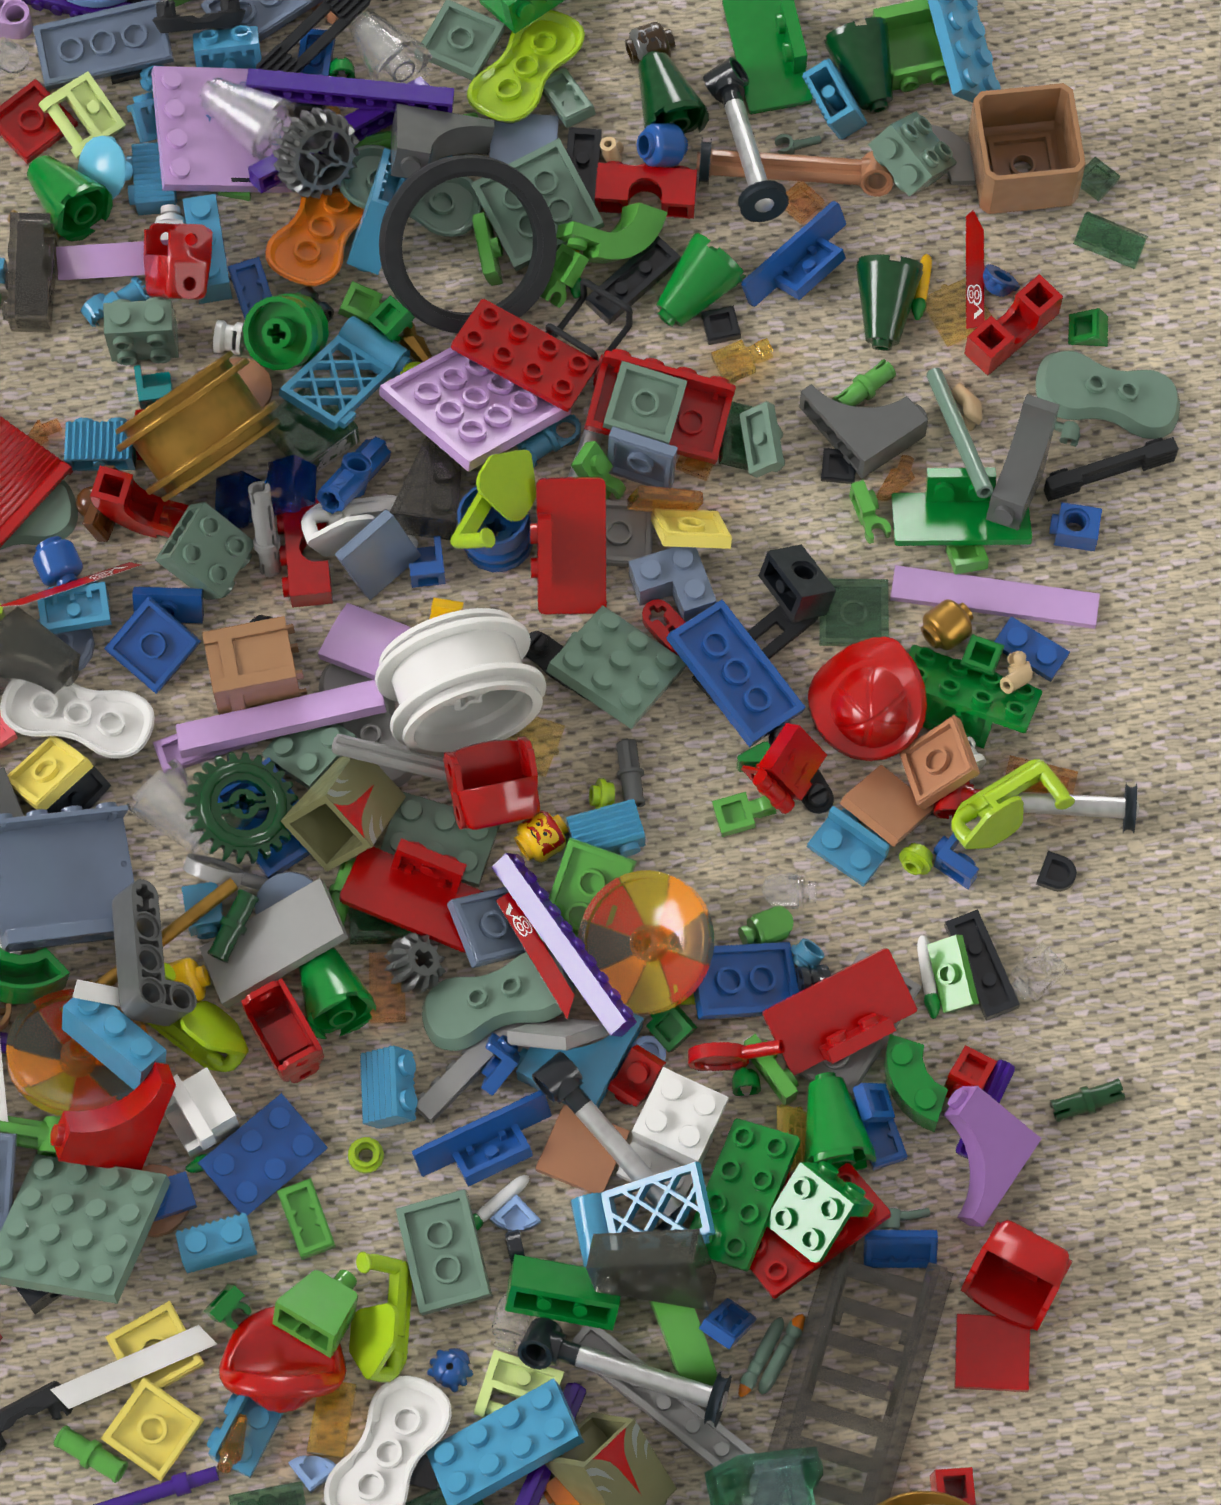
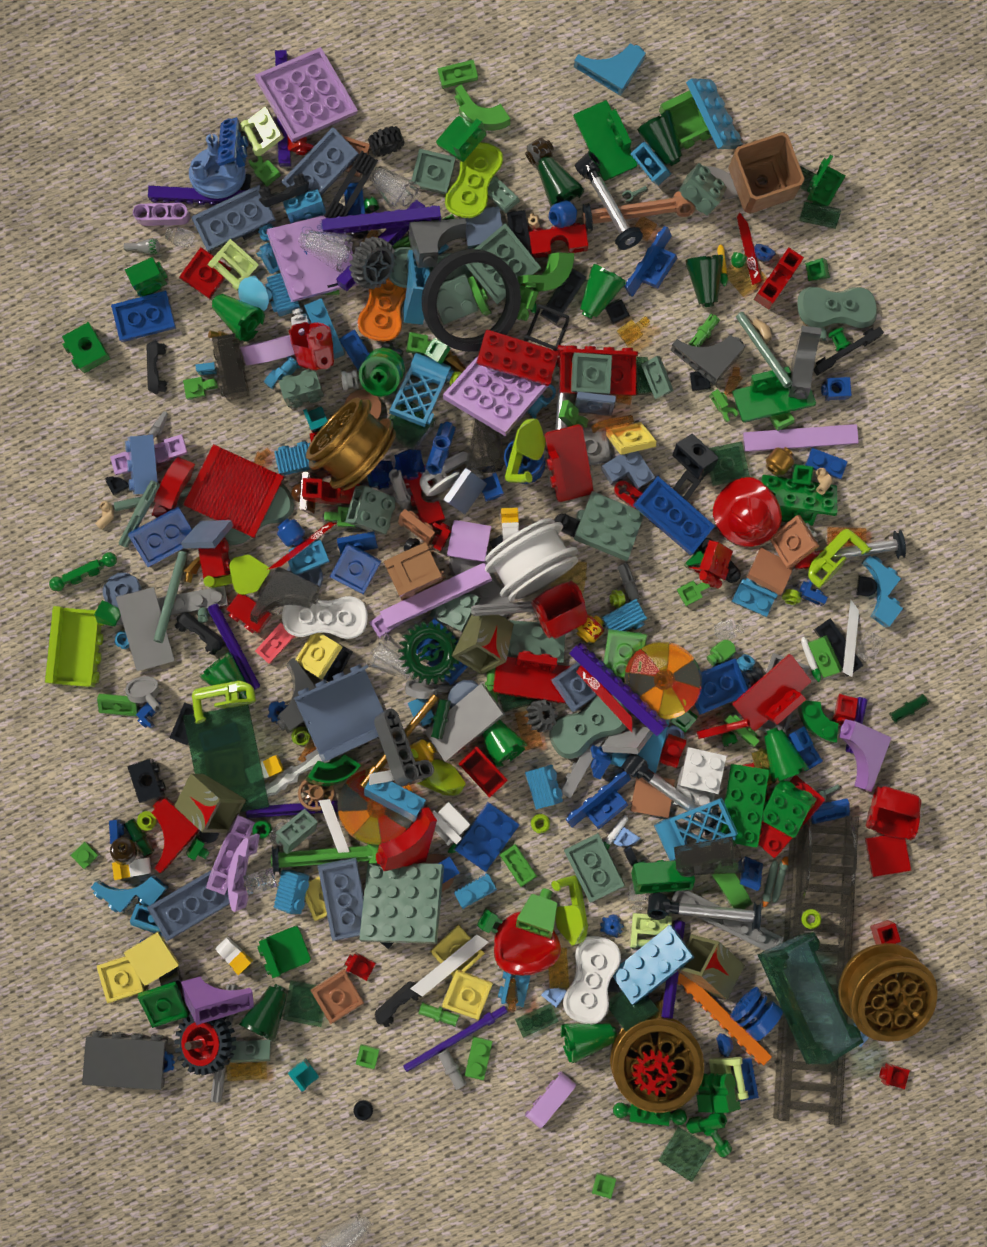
camera: 15 degrees left, 15 degrees up
(145, 554) = (339, 516): none -> bright green plate
(270, 586) = (420, 529): none -> nougat plate
(315, 630) = (440, 540): none -> red bracket
(442, 245) = (455, 299): none -> sand green plate
(819, 1418) = (804, 918): none -> lime plate
(951, 282) = (738, 259): none -> green hinge
(1007, 954) = (851, 639): none -> white sticker
(1095, 865) = (886, 578): none -> dark azure arch
(1098, 443) = (839, 339): none -> green bush
(1128, 188) = (825, 183): none -> green bracket

